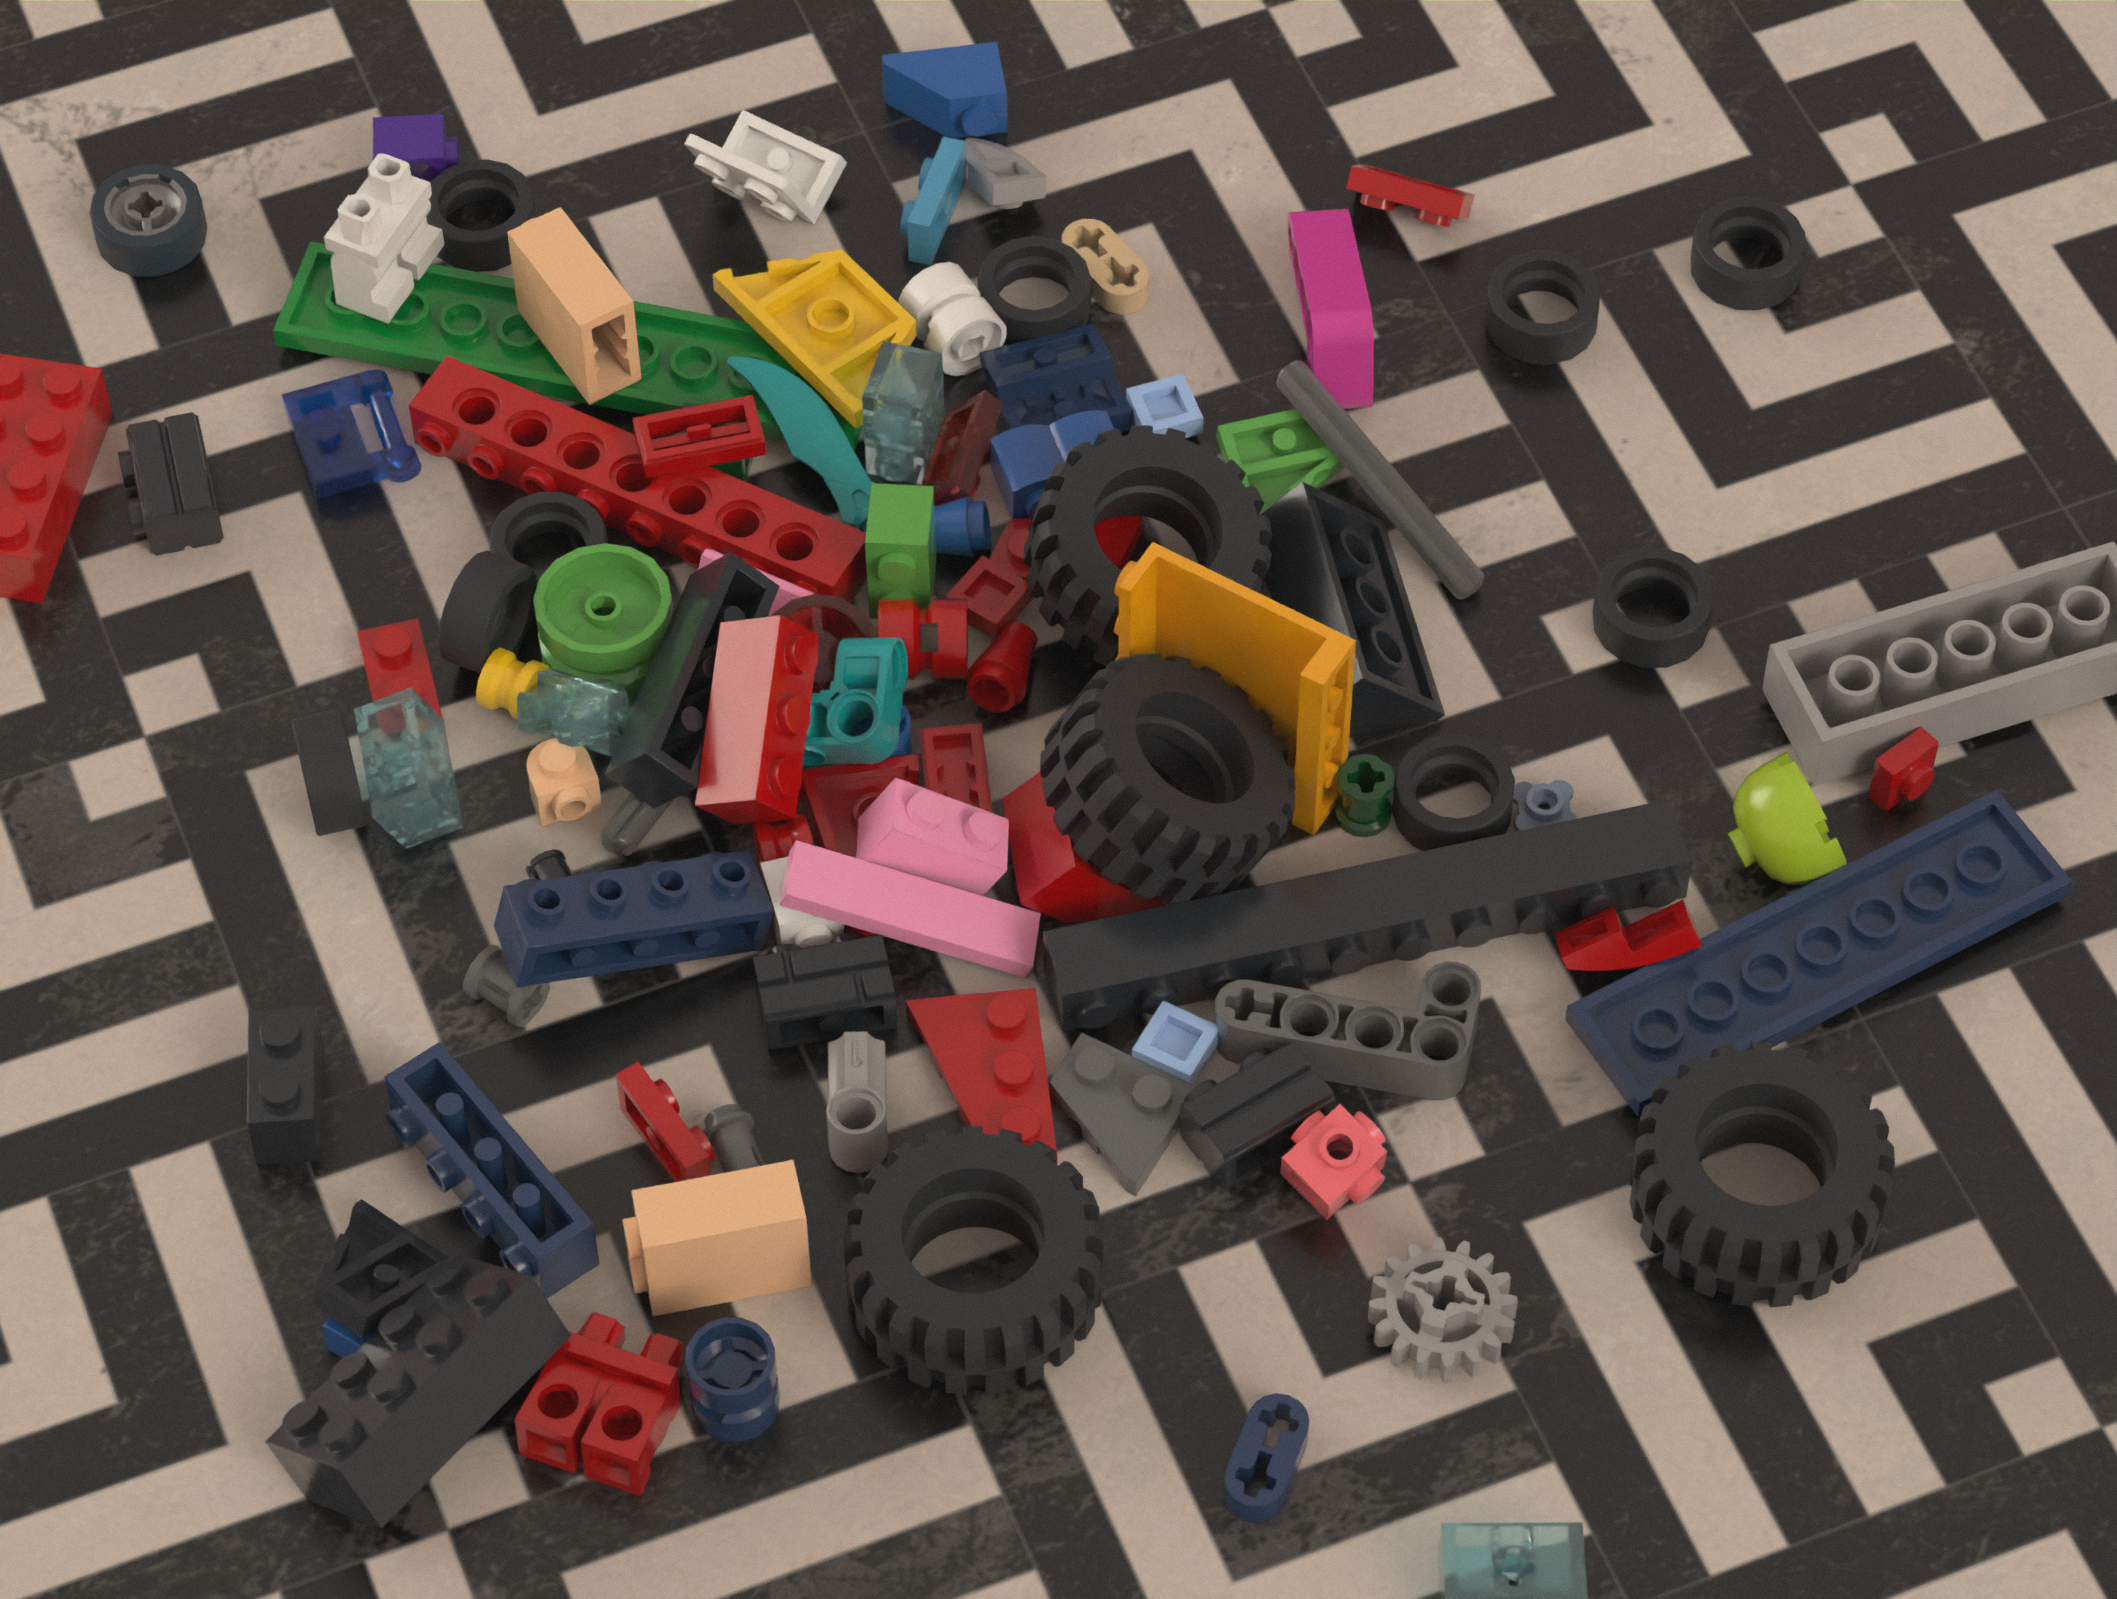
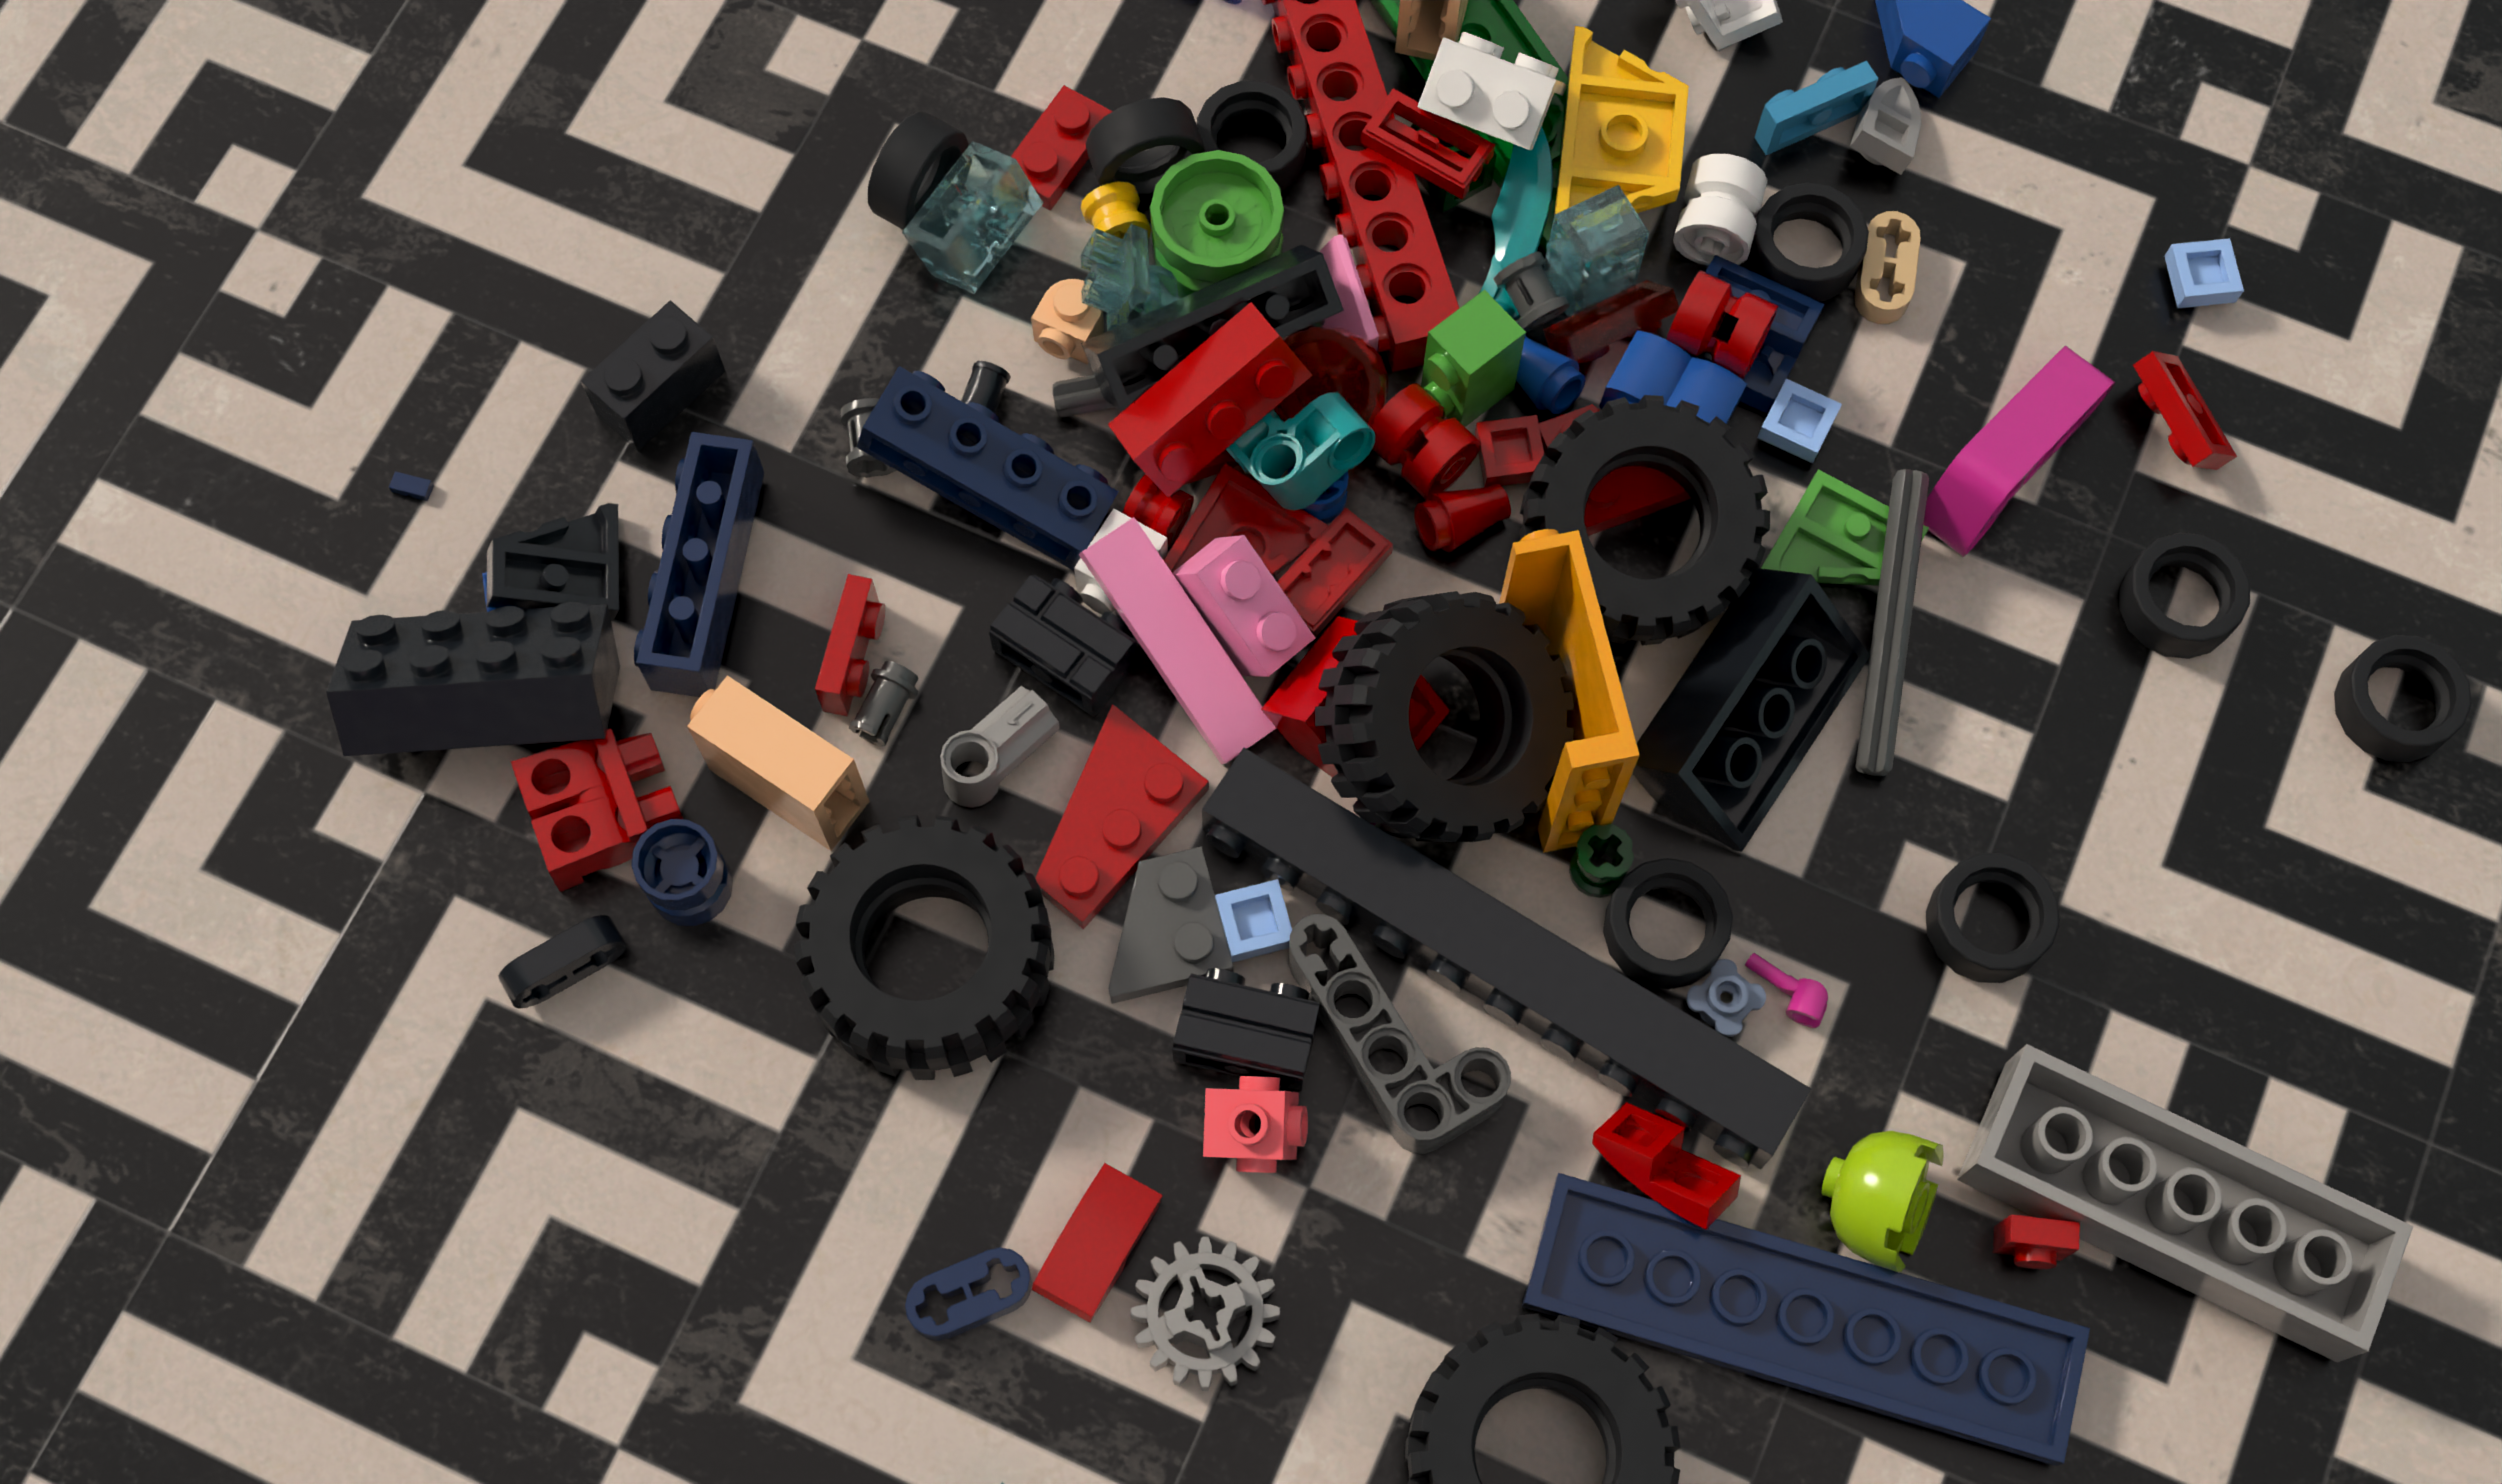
camera: 45 degrees right, 15 degrees up
(170, 1336) = (412, 485): none -> dark blue piece
(710, 1525) = (562, 961): none -> black beam
(714, 358) = (1490, 93): none -> white bracket
(877, 458) = (1531, 291): none -> dark grey bush
(1027, 389) = (1703, 313): none -> red wheel
(1315, 1340) = (1096, 1242): none -> red slope
(1321, 96) = (2203, 273): none -> light blue plate
(1593, 759) = (1808, 996): none -> dark pink hand

